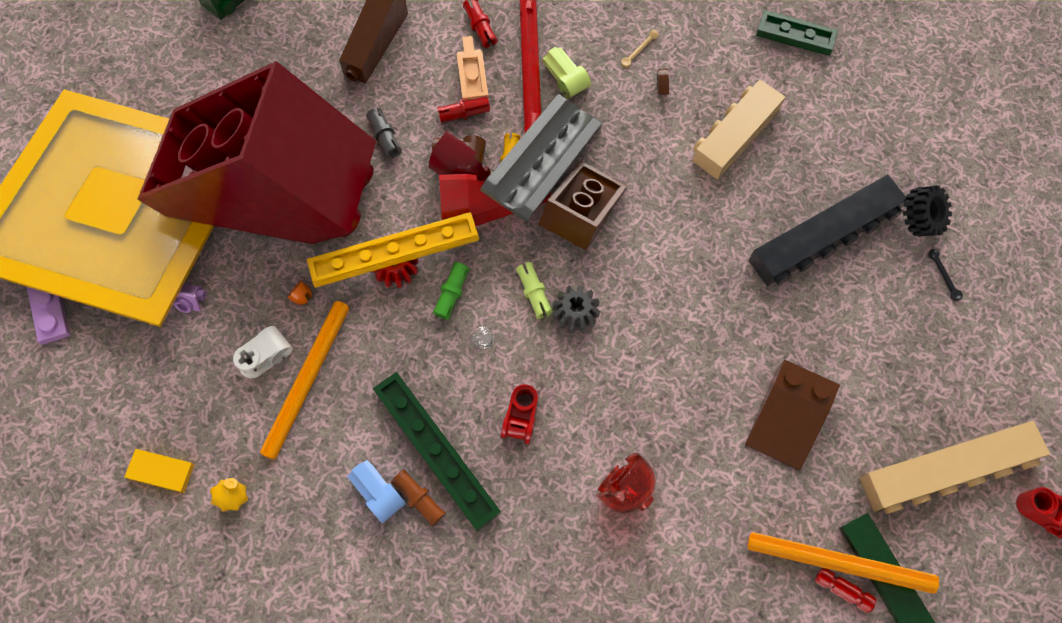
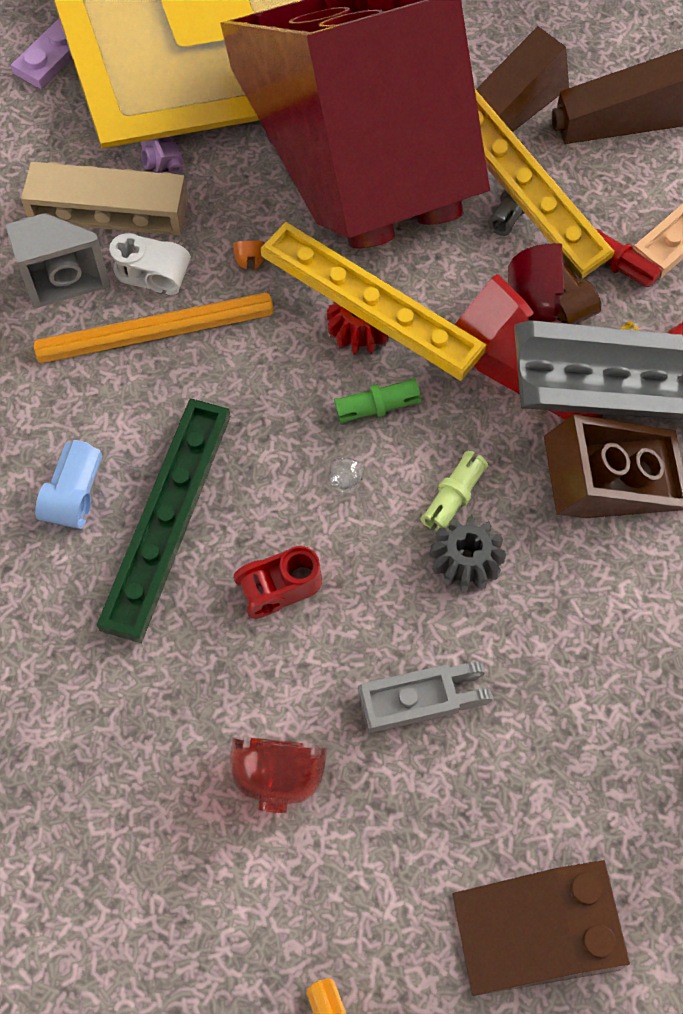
camera: 55 degrees right, 5 degrees down
(192, 348) = (107, 197): none -> tan brick
(218, 403) = (56, 259): none -> light grey slope
(316, 66) = (527, 79): none -> reddish brown slope
(402, 119) = (540, 195): none -> yellow tile
(418, 497) = (94, 536): dark orange pin -> none
(635, 389) = (420, 696): none -> light grey hinge

